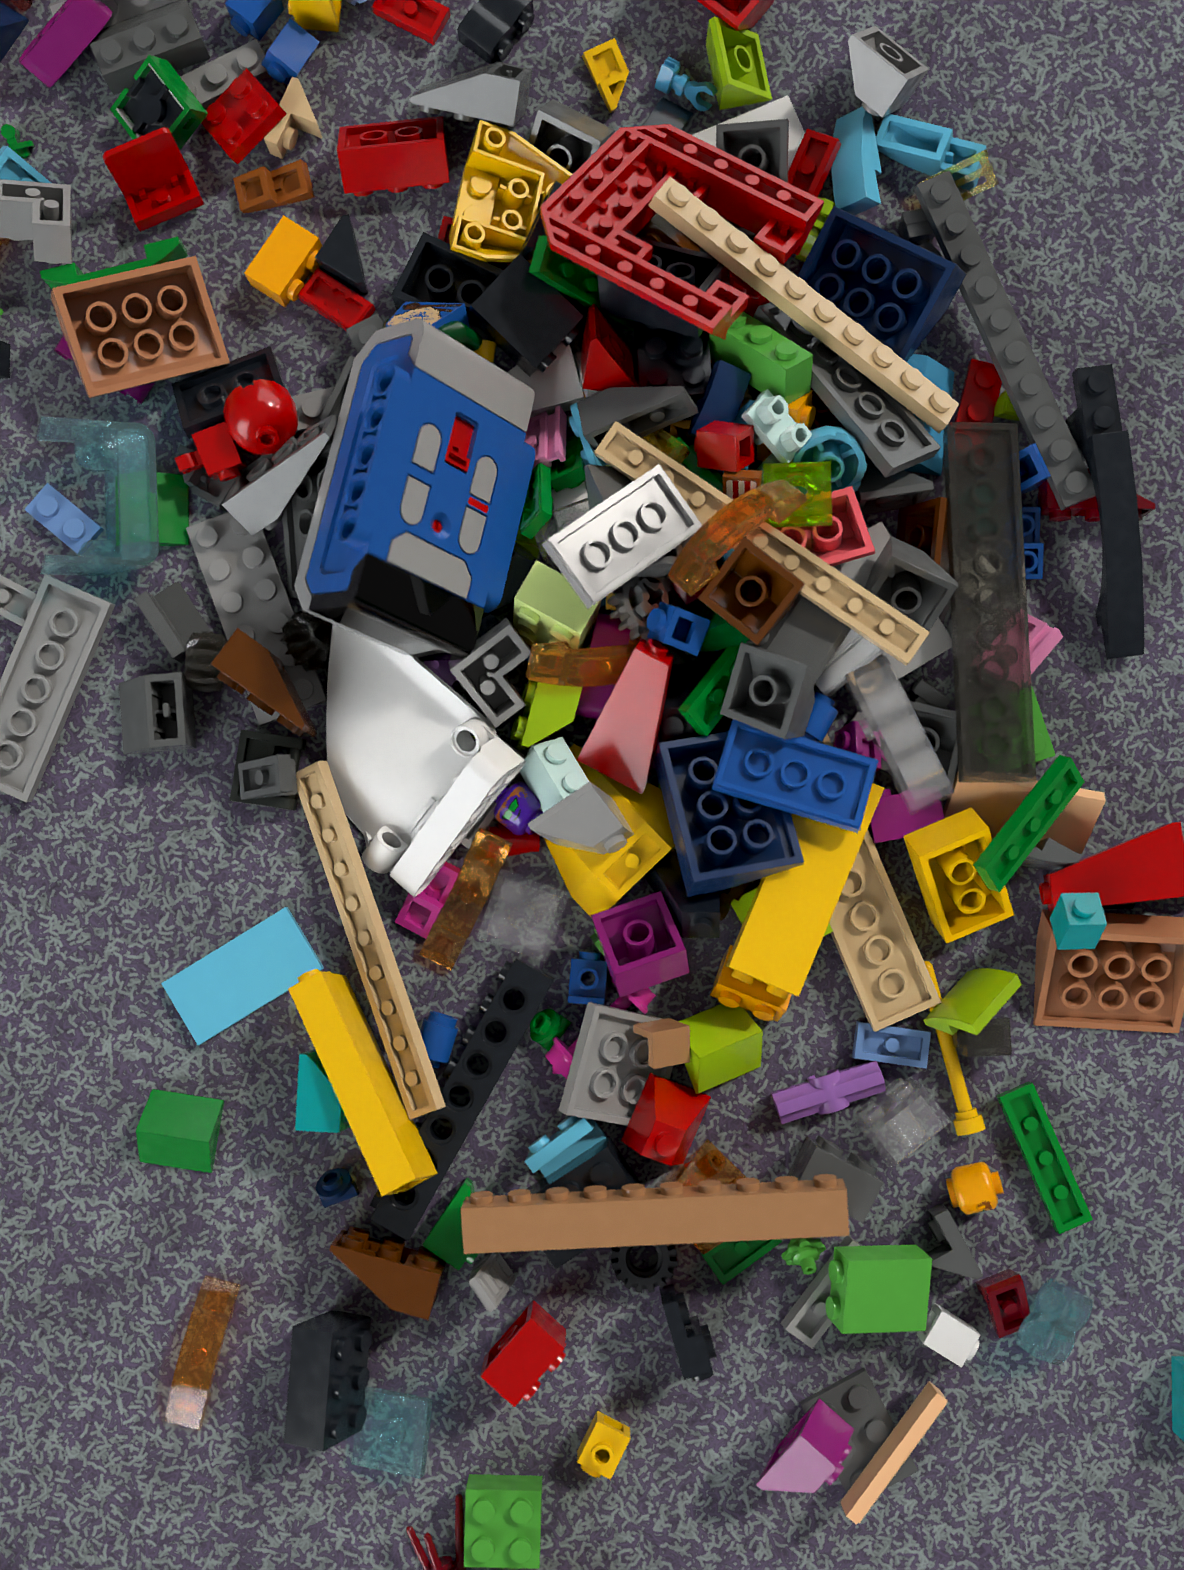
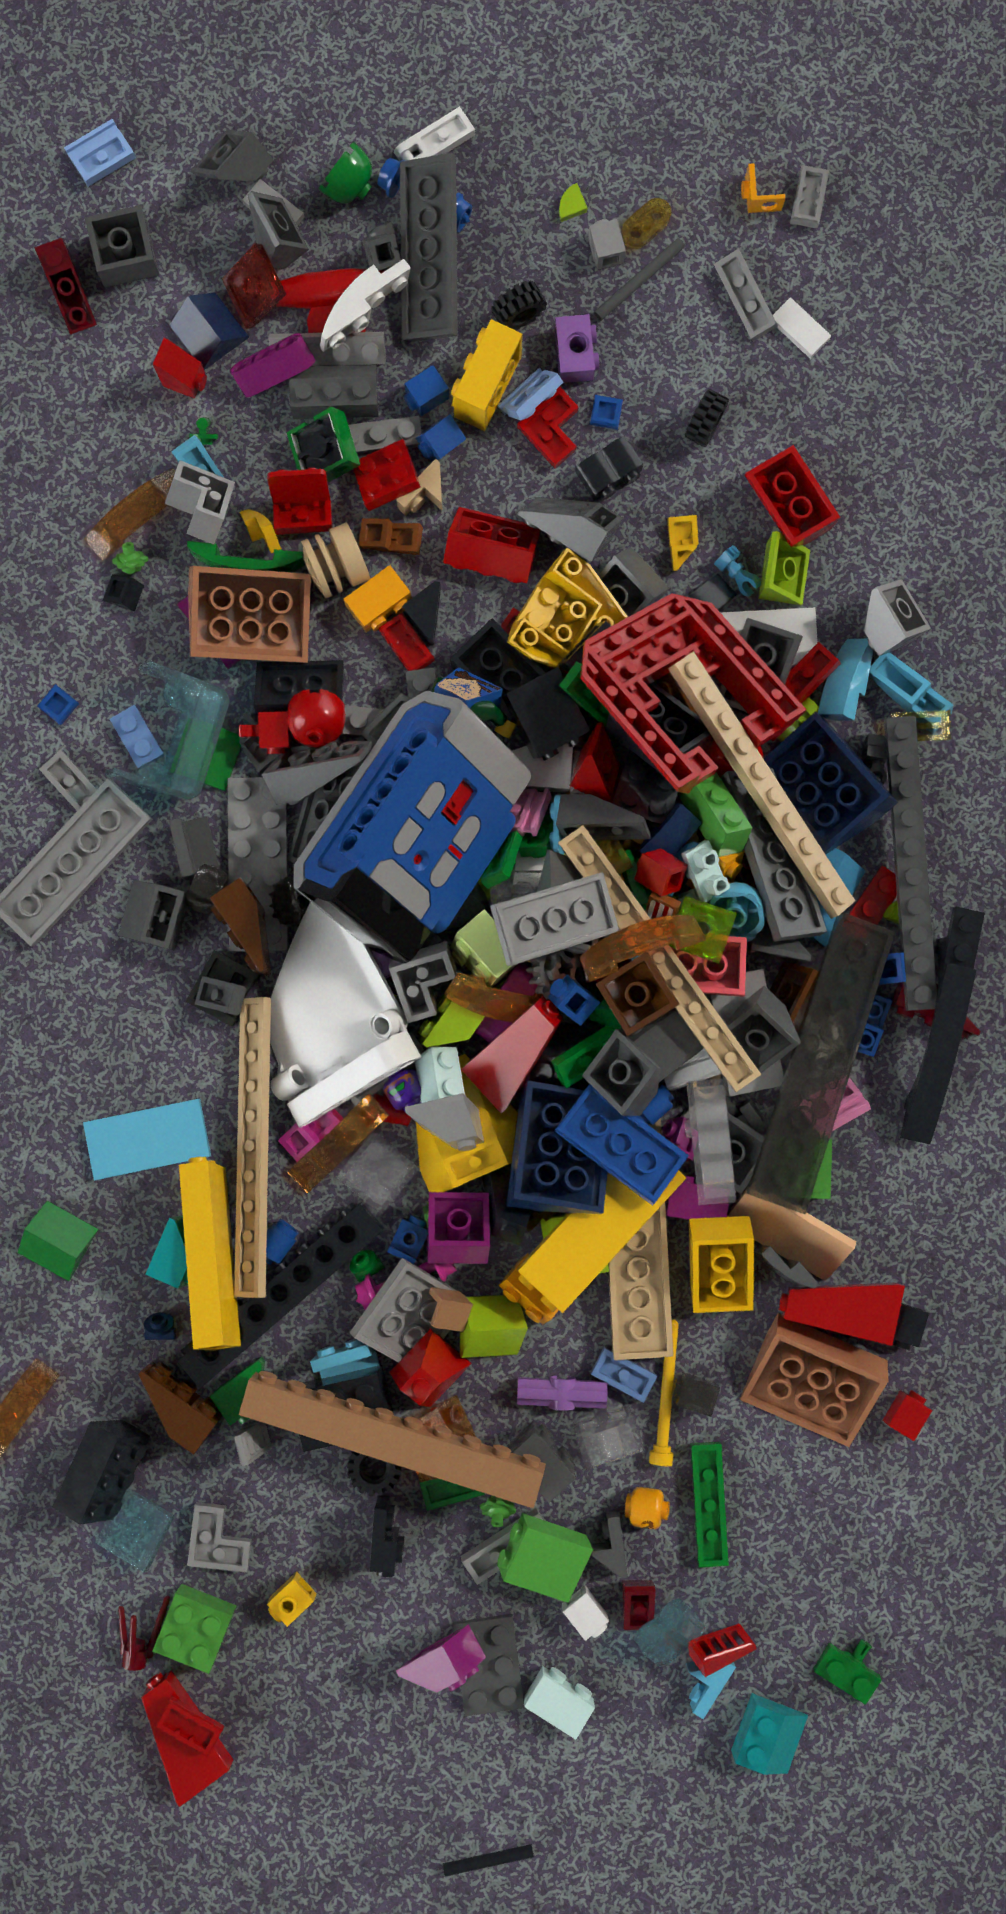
camera: 15 degrees right, 0 degrees up
(120, 229) = (260, 527): none -> yellow slope
(219, 232) = (335, 560): none -> tan wheel
(488, 1420) = (209, 1546): none -> light grey plate
(524, 1354) = (257, 1507): red brick -> none
(893, 1453) = (509, 1686): light nougat tile -> none
(959, 1450) = (559, 1701): none -> light aqua brick
(973, 1001) = (697, 1364): lime slope -> none
(1029, 823) = (787, 1245): green plate -> none
(1078, 921) = (797, 1333): teal brick -> none
(1121, 1333) = (717, 1660): none -> red slope
(1123, 1352) = (705, 1694): none -> medium azure slope

